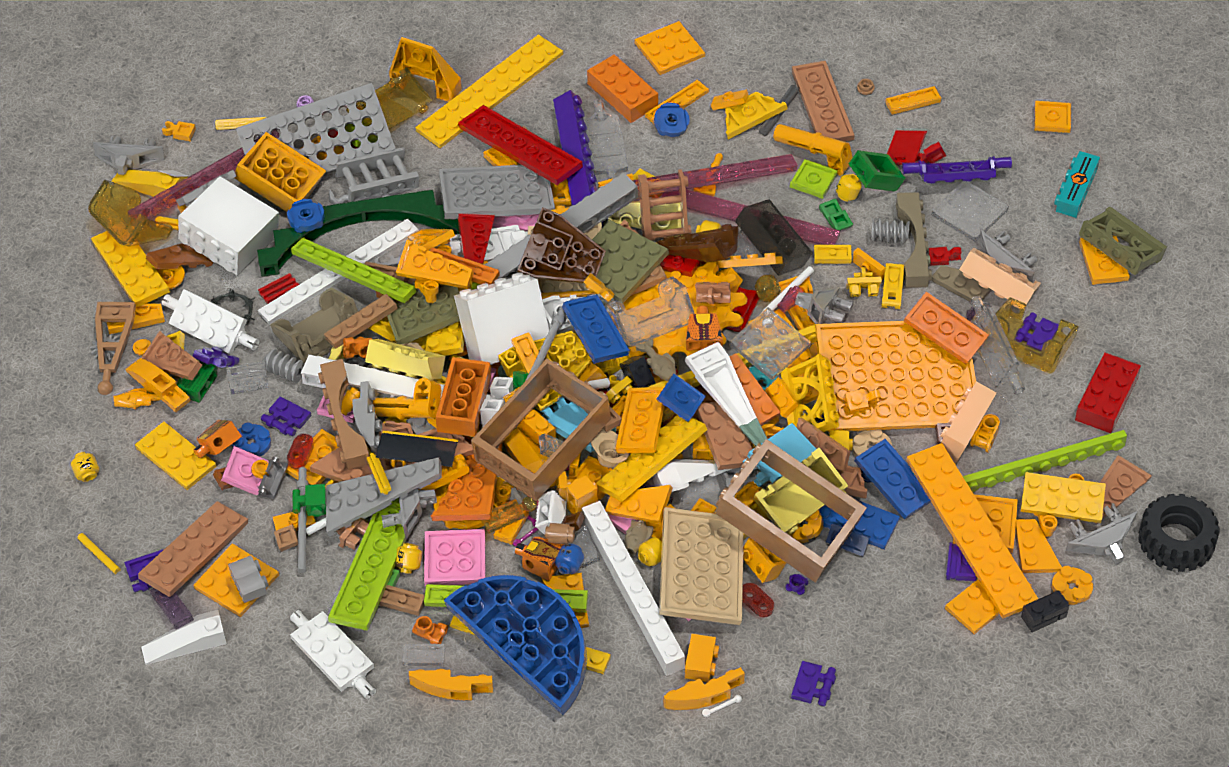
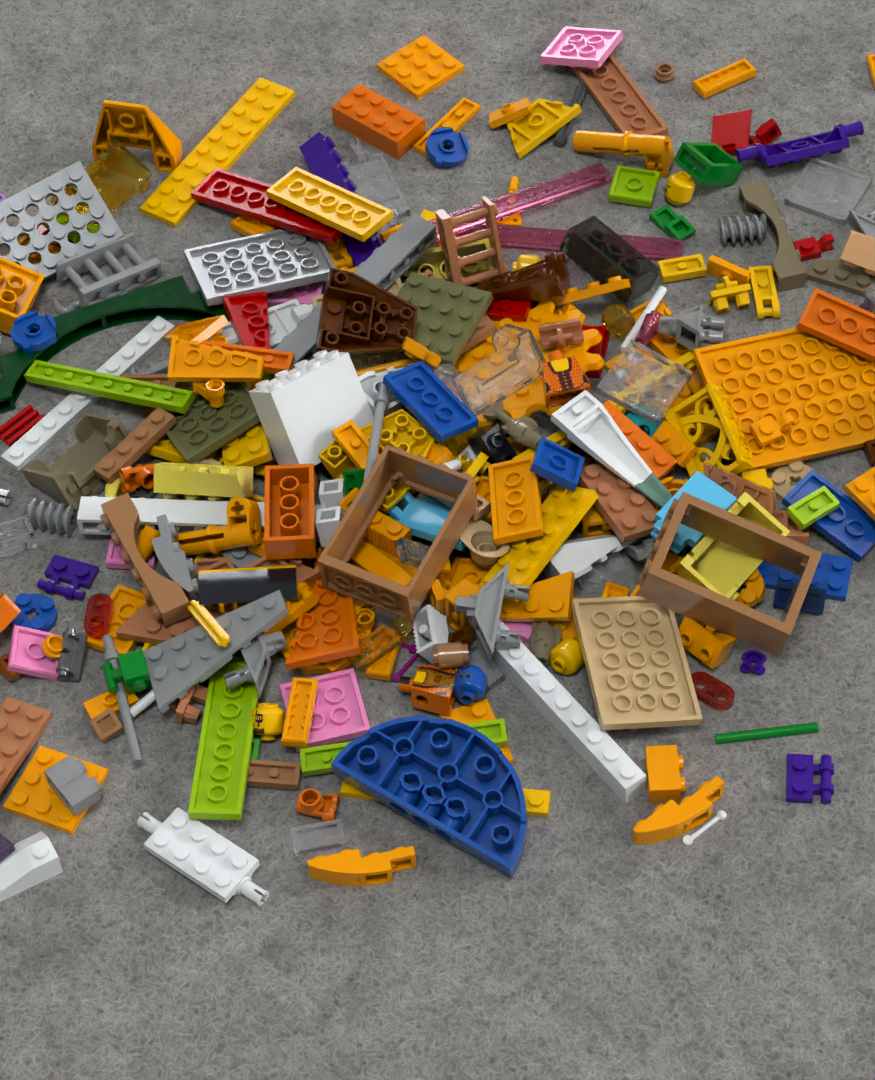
camera: 10 degrees left, 0 degrees up
(433, 556) = (299, 712): none -> light orange plate
(561, 152) = (330, 204): none -> yellow plate
(594, 503) = (486, 608): none -> light grey connector
(791, 641) = (766, 733): none -> green bar
(802, 54) = (581, 47): none -> bright pink plate
(876, 469) = (812, 507): none -> lime plate

